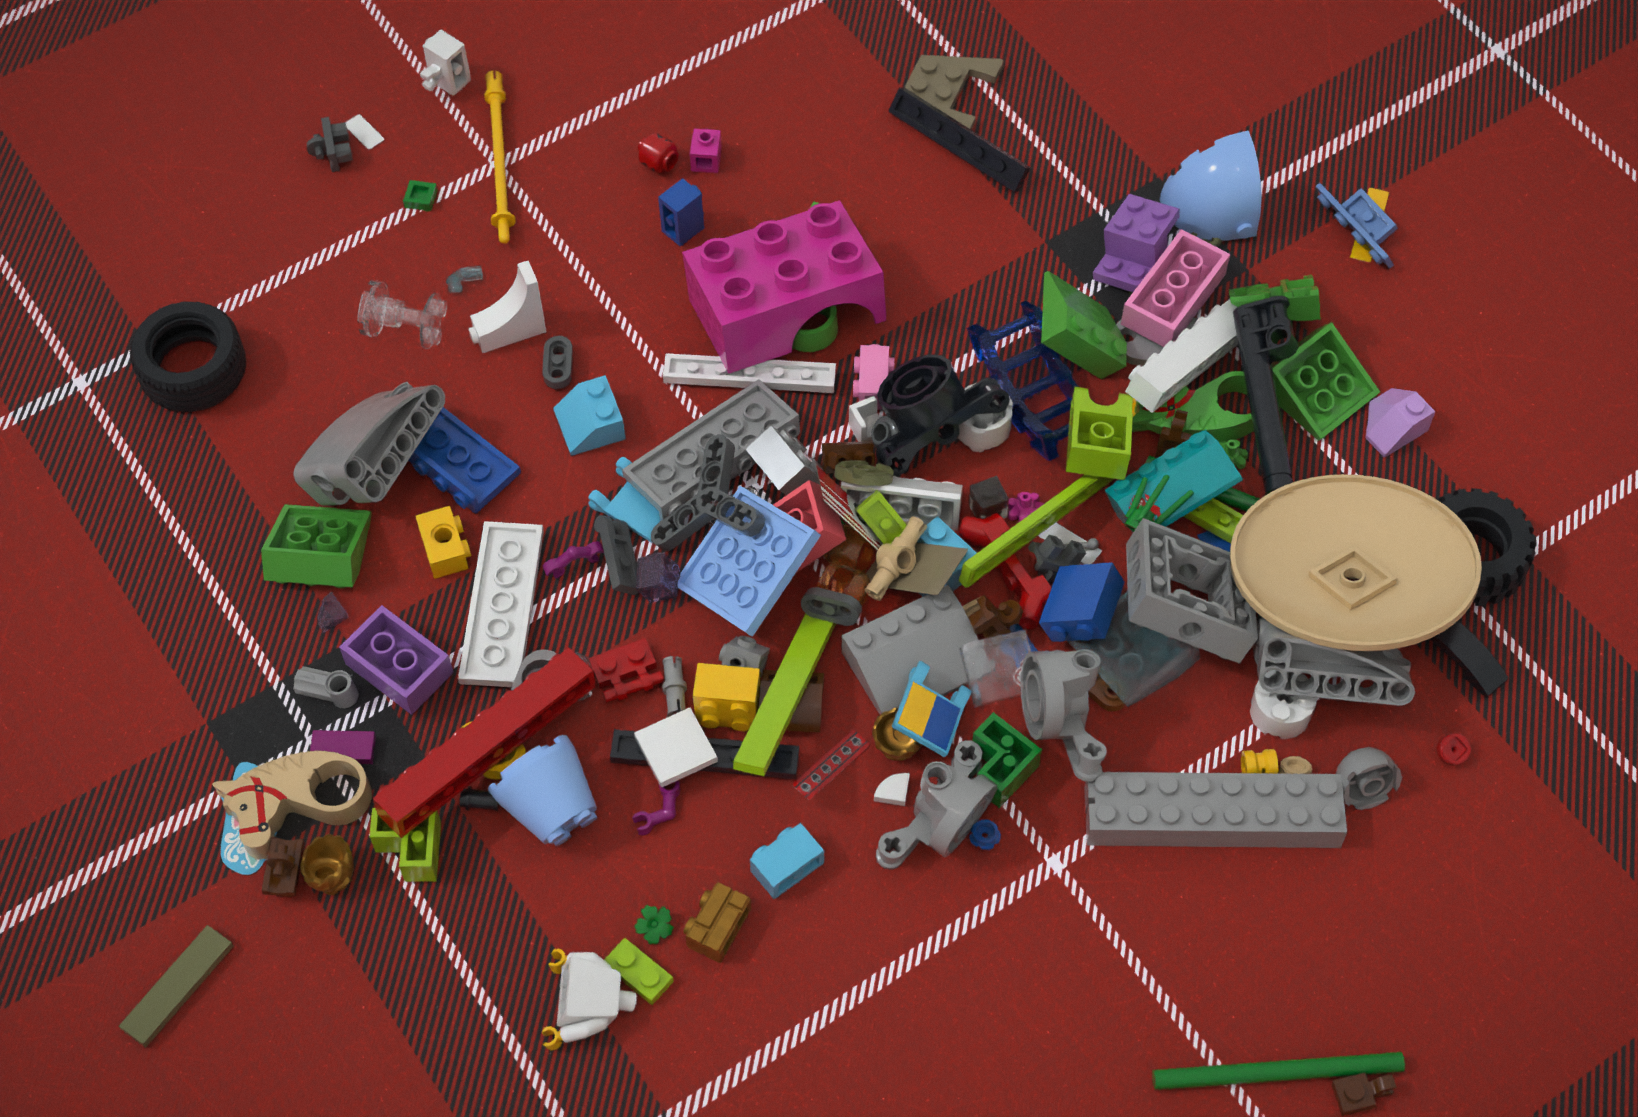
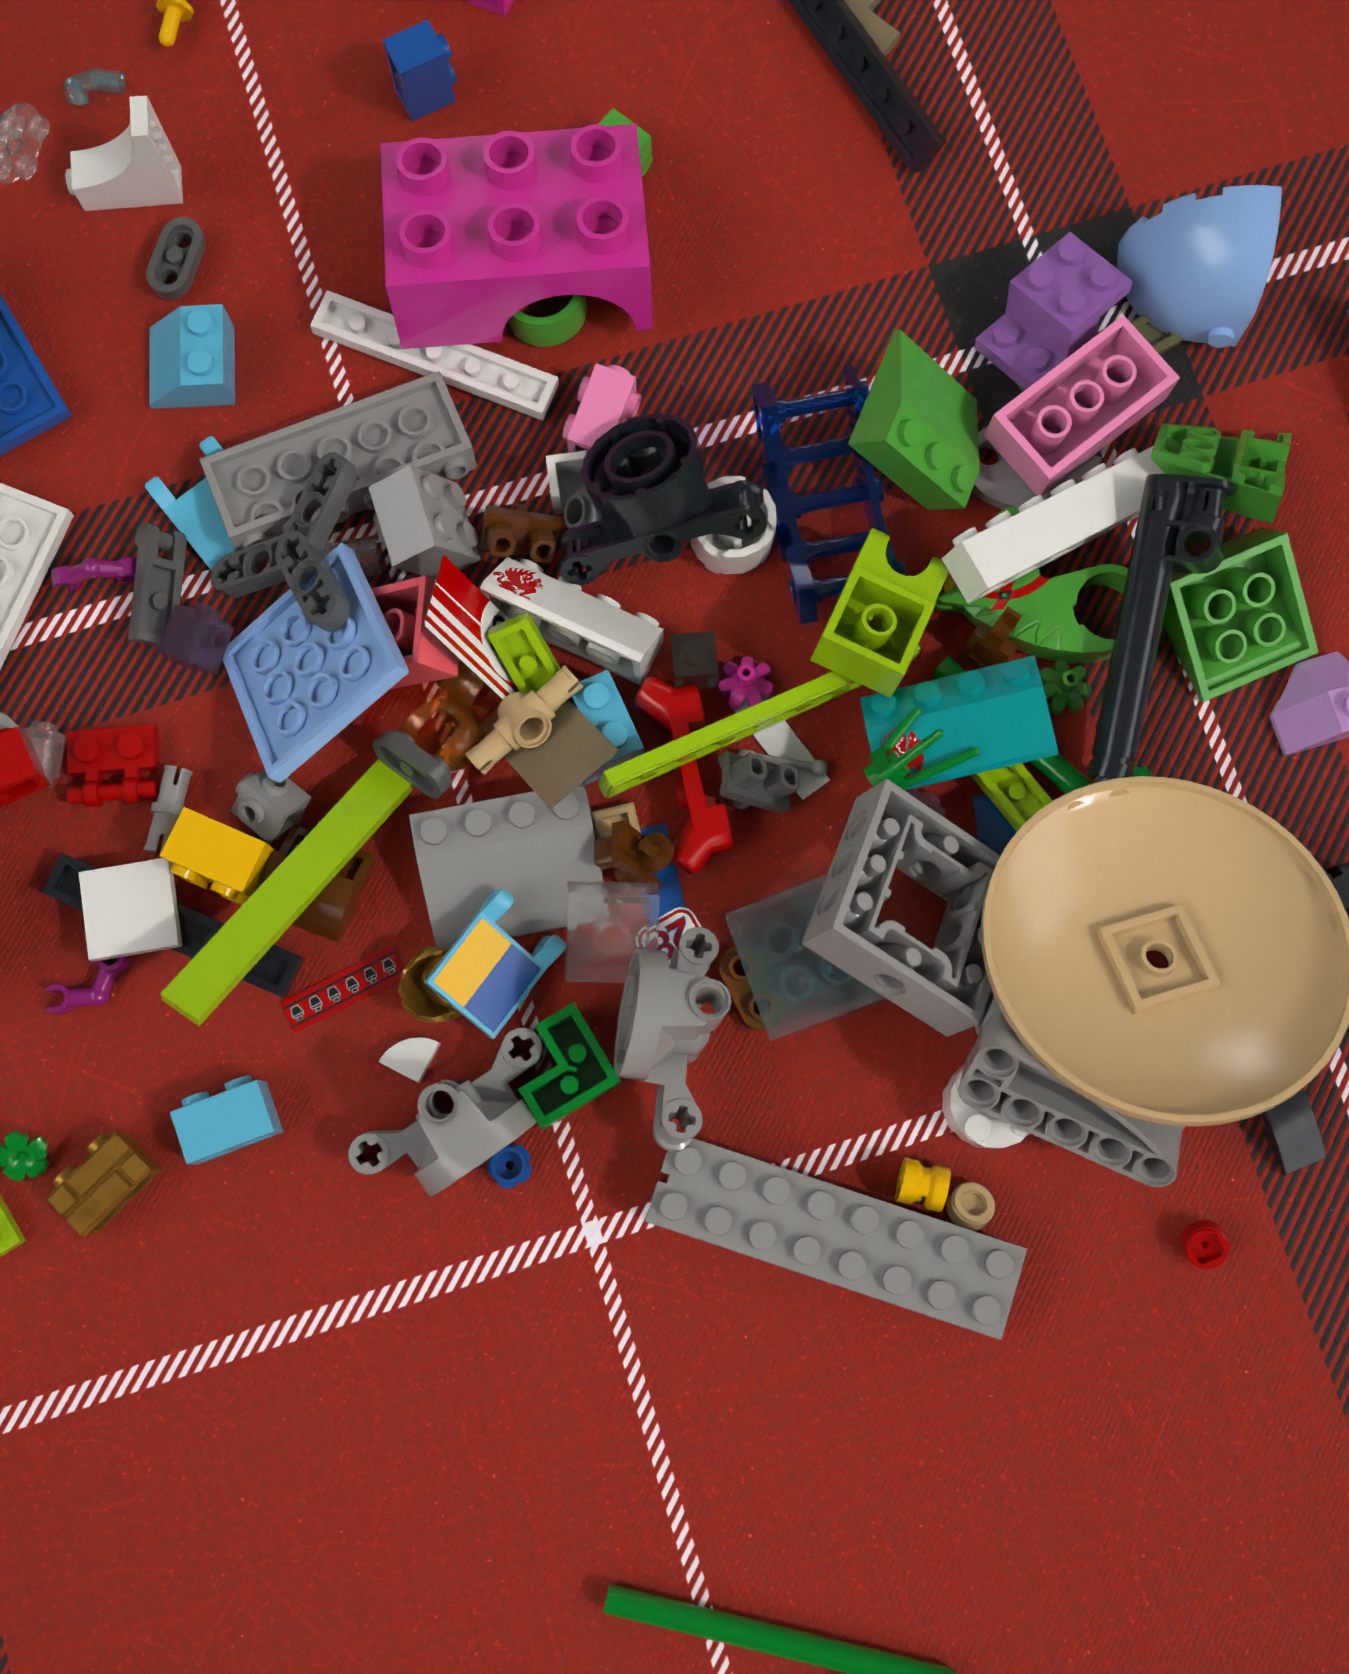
camera: 15 degrees right, 20 degrees up
(861, 473) = (521, 577): olive tile -> none
(1082, 602) = (760, 870): blue brick -> none
(1368, 777) = (1064, 1252): light grey cylinder -> none

